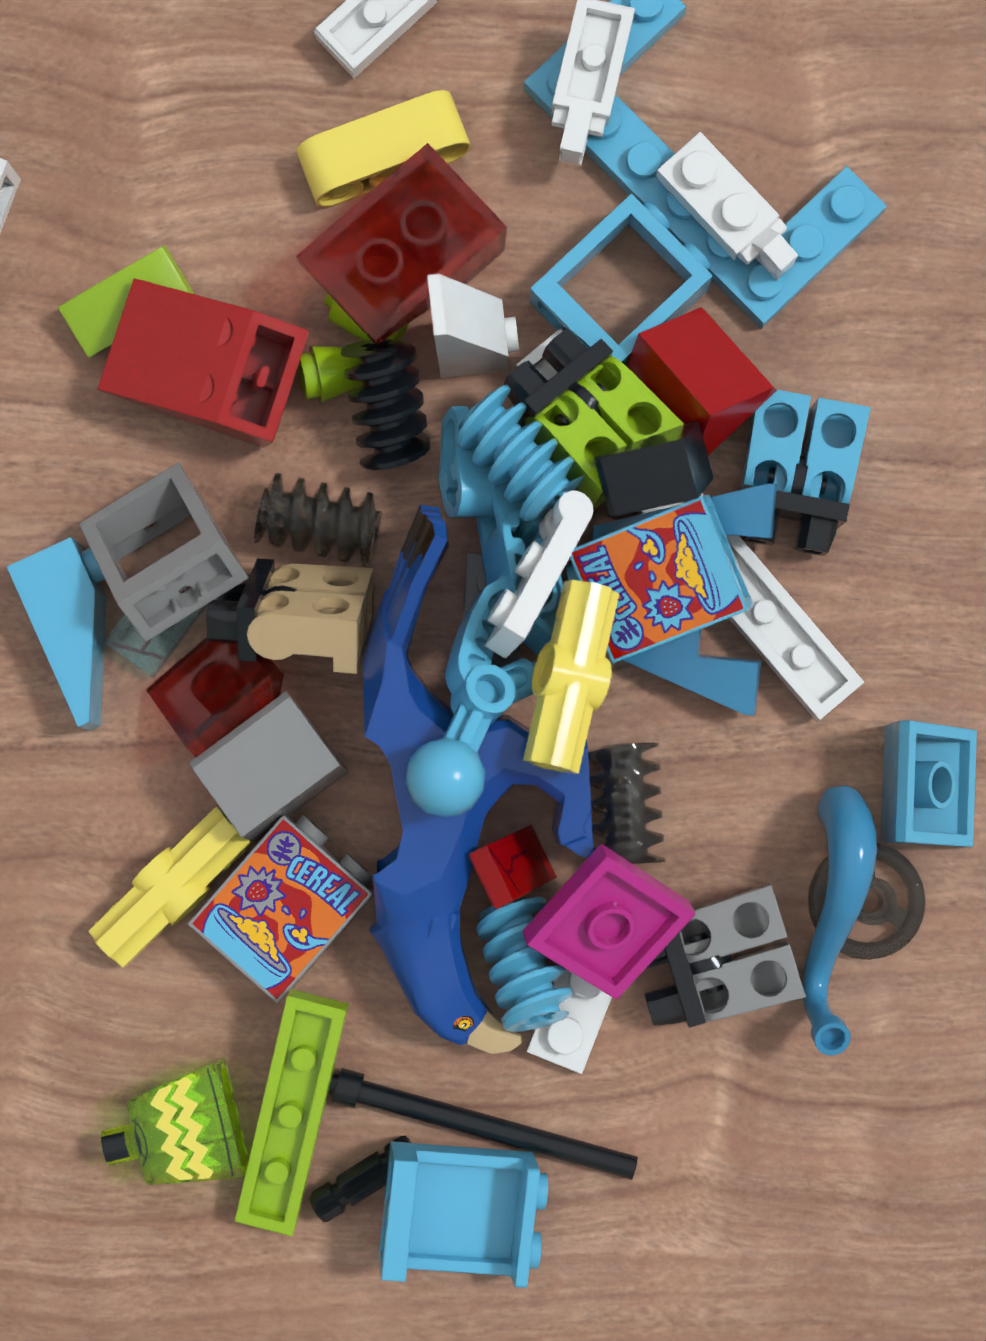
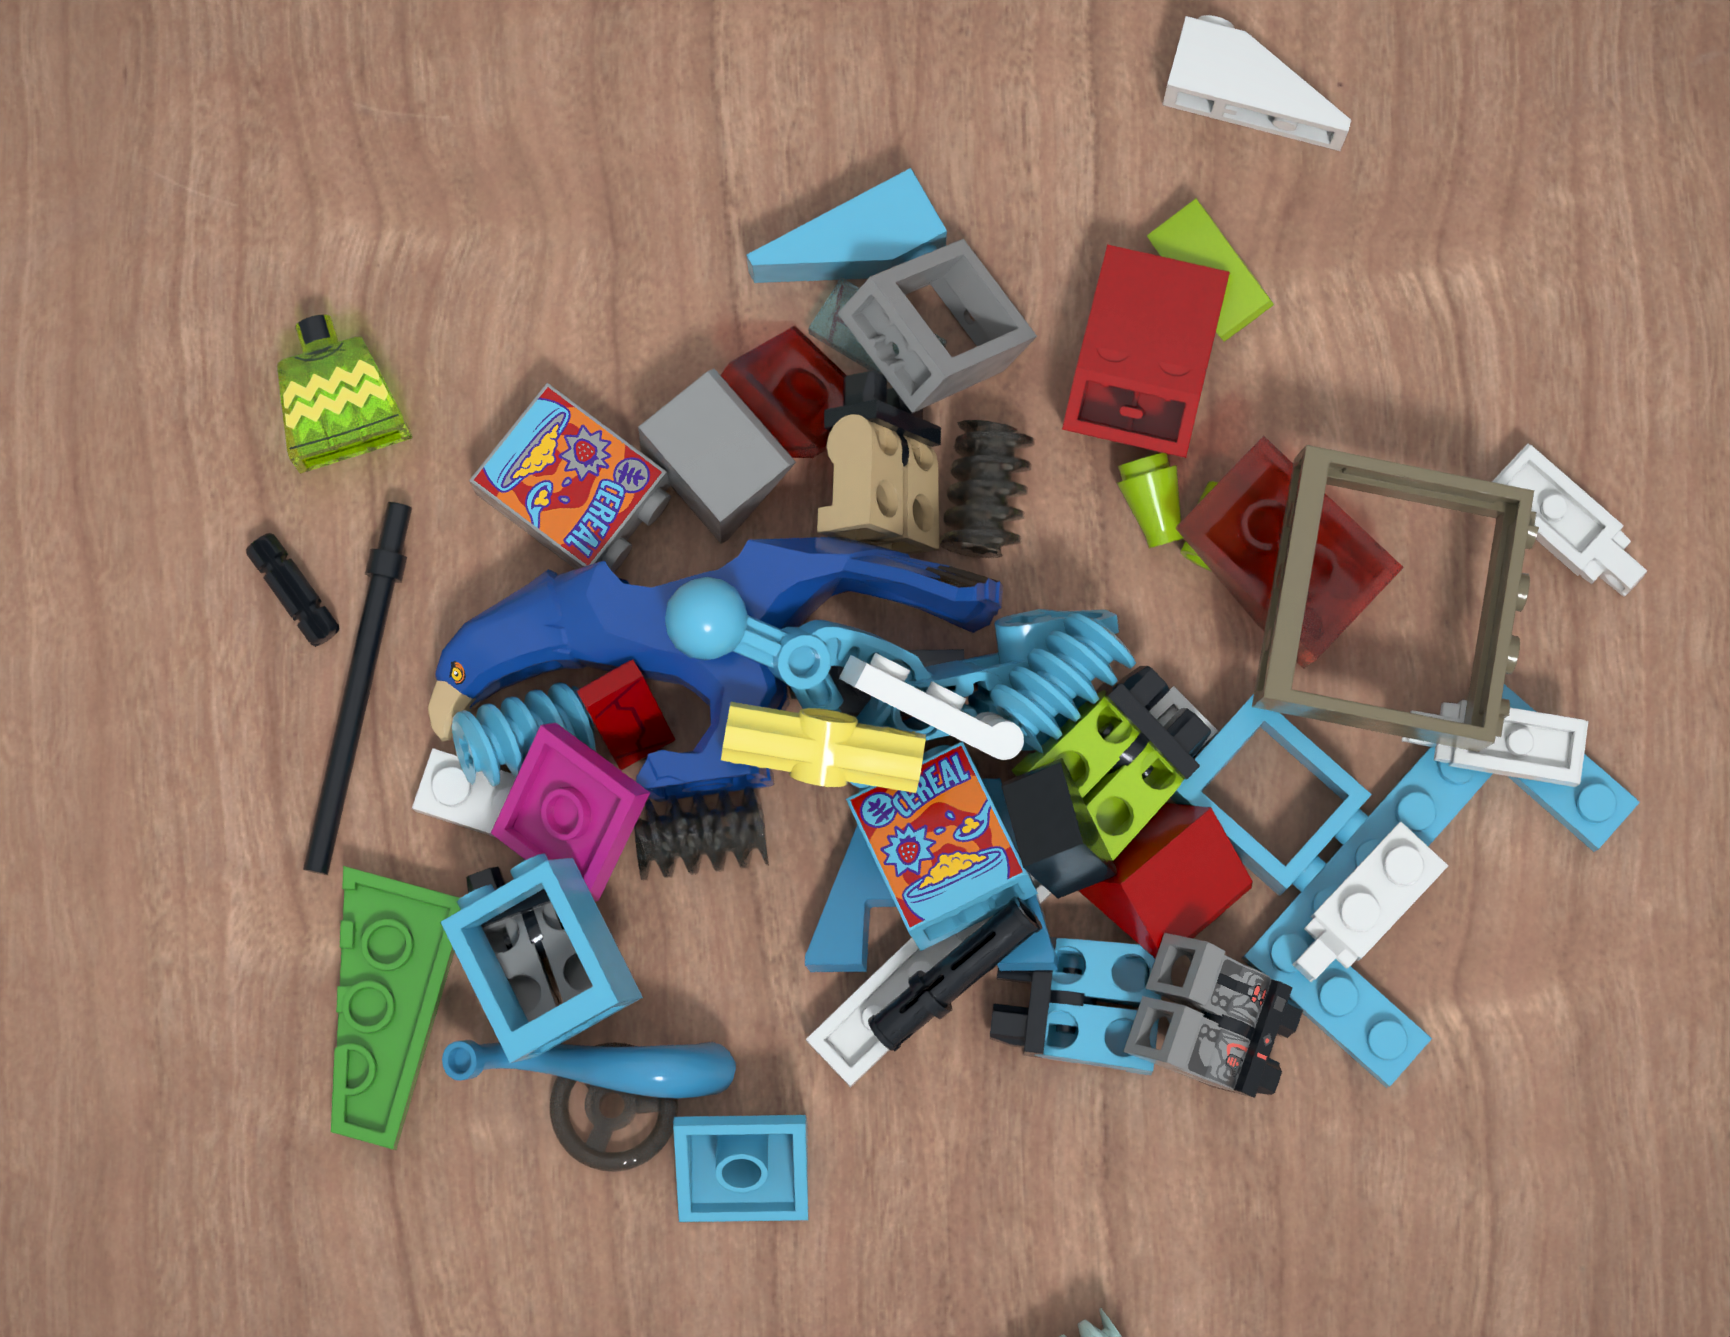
camera: 80 degrees right, 5 degrees down
(169, 888) = (582, 362): light yellow piece -> none
(291, 1112) = (358, 505): lime plate -> none
(366, 151) = (1416, 538): light yellow beam -> none
(390, 401) = (1119, 551): black piece -> none
(461, 1211) = (262, 686): medium azure panel -> none
(469, 329) = (1203, 625): white slope -> none
(476, 57) = (1504, 593): none -> dark tan window
(729, 910) = (605, 966): none -> medium azure window
(739, 1100) = (386, 1000): none -> bright green wing
(812, 633) = (935, 990): none -> black pin
(832, 332) = (1223, 1021): none -> hips

